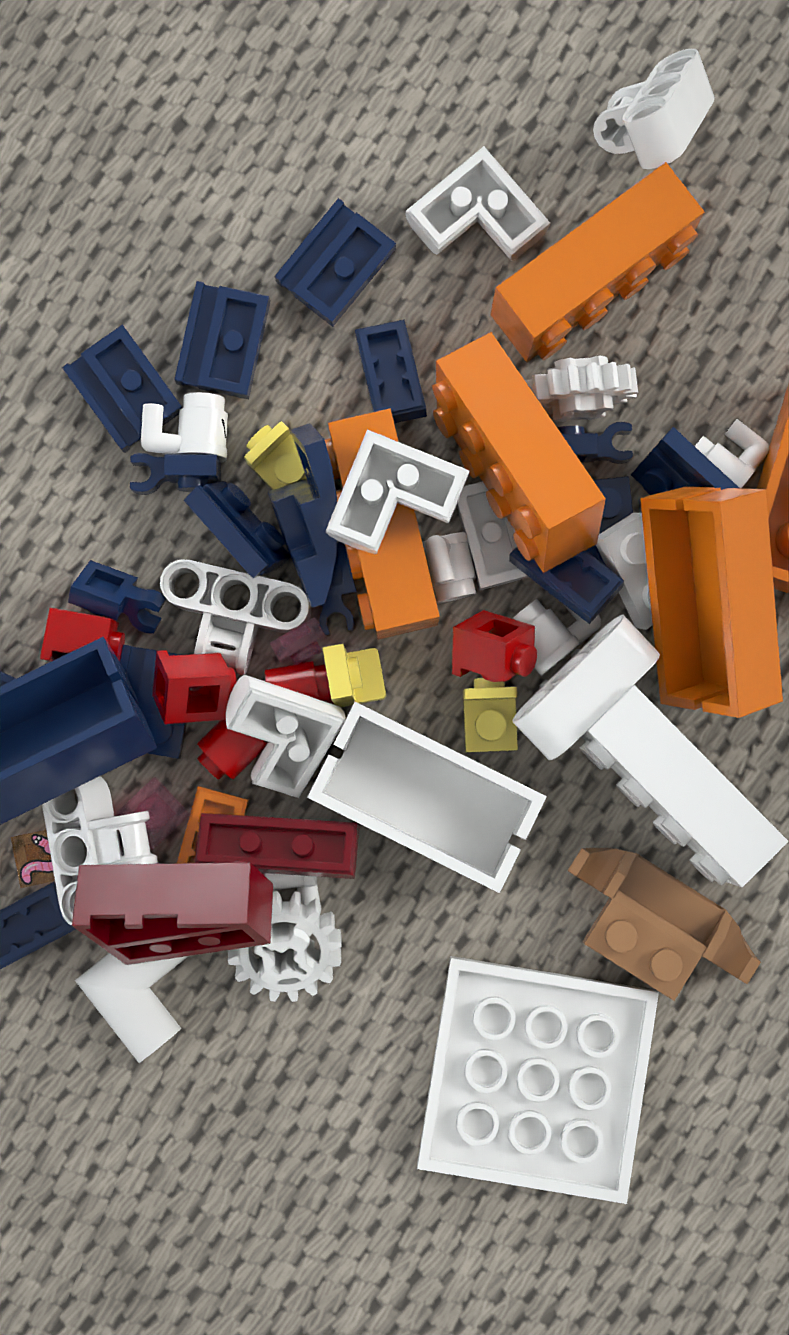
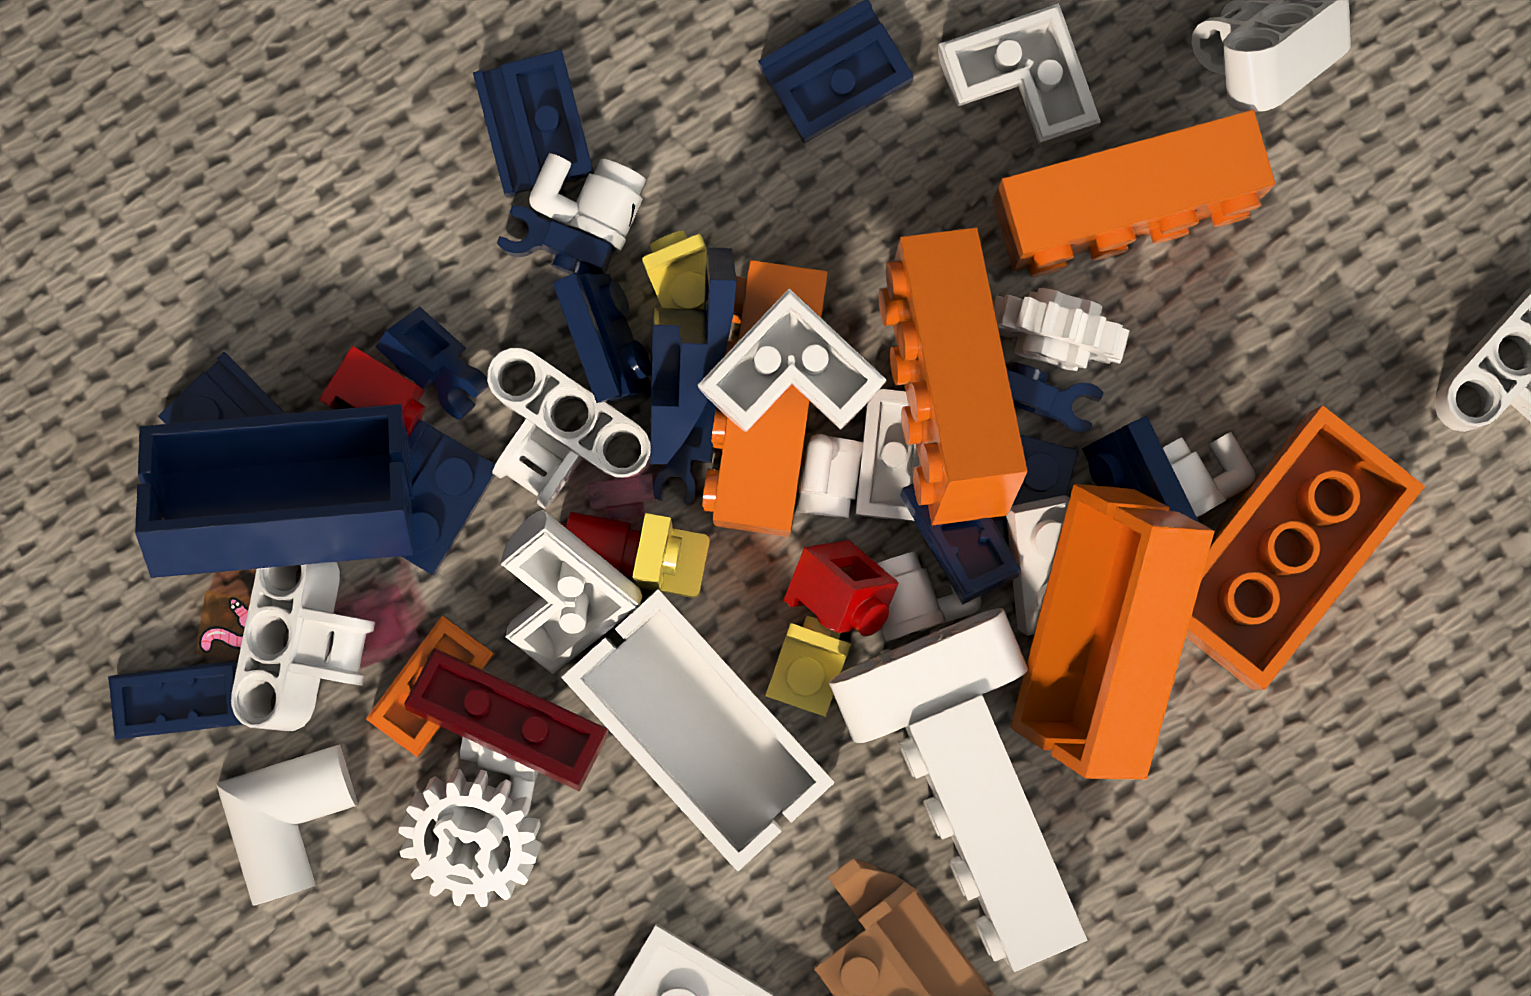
camera: 20 degrees right, 0 degrees up
(173, 908) = (360, 745): wedge -> none
(192, 687) = (479, 500): red brick -> none
(222, 340) = (670, 111): dark blue plate -> none
(228, 751) = (491, 588): red brick -> none
(391, 370) = (850, 222): dark blue plate -> none

